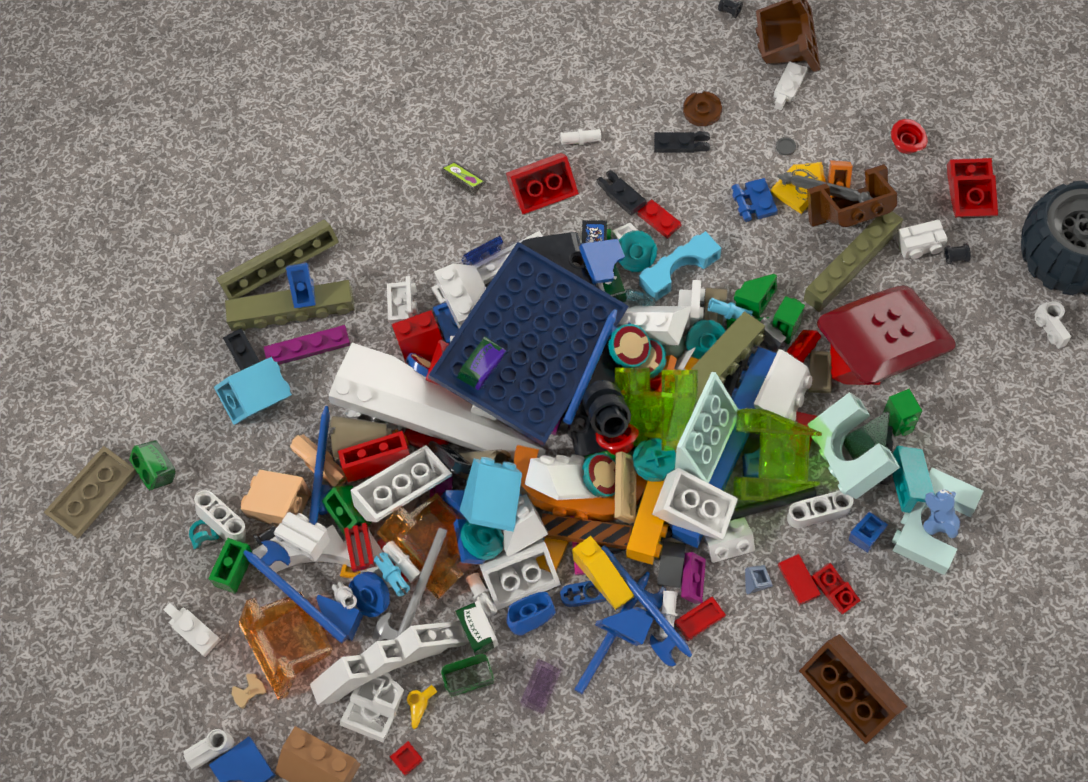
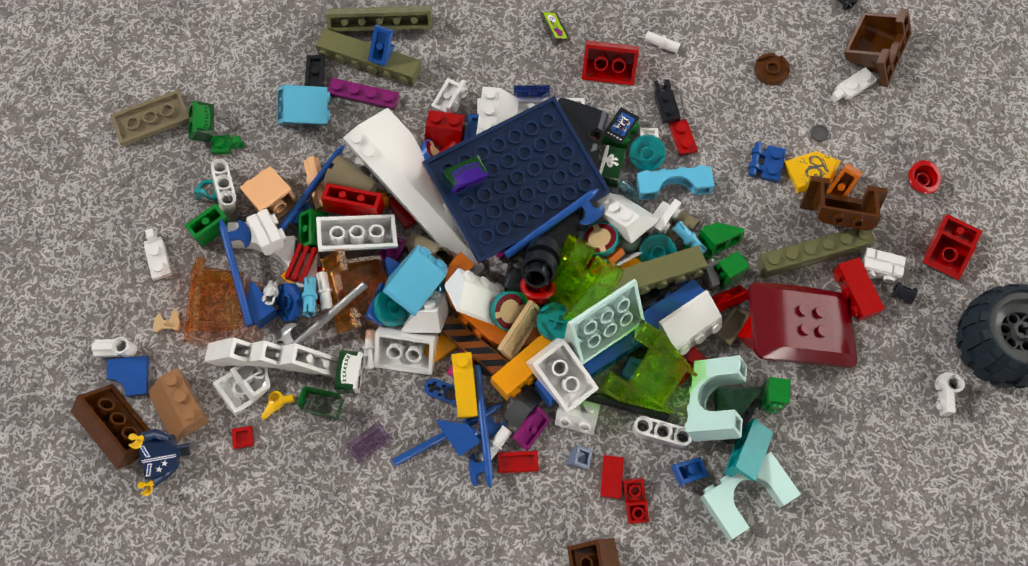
camera: 25 degrees right, 5 degrees up
(189, 476) = (224, 143): none -> green plate
(450, 458) = (406, 233): black hinge -> none
(530, 613) = (394, 383): blue piece -> none
(600, 259) = (614, 143): tile -> none
(629, 345) = (591, 223): tile -> none
(681, 142) = (738, 86): black hinge -> none
(835, 190) = (834, 188): dark grey wheel -> none
(914, 273) = (858, 289): none -> red brick
(942, 514) = (754, 494): medium blue animal -> none

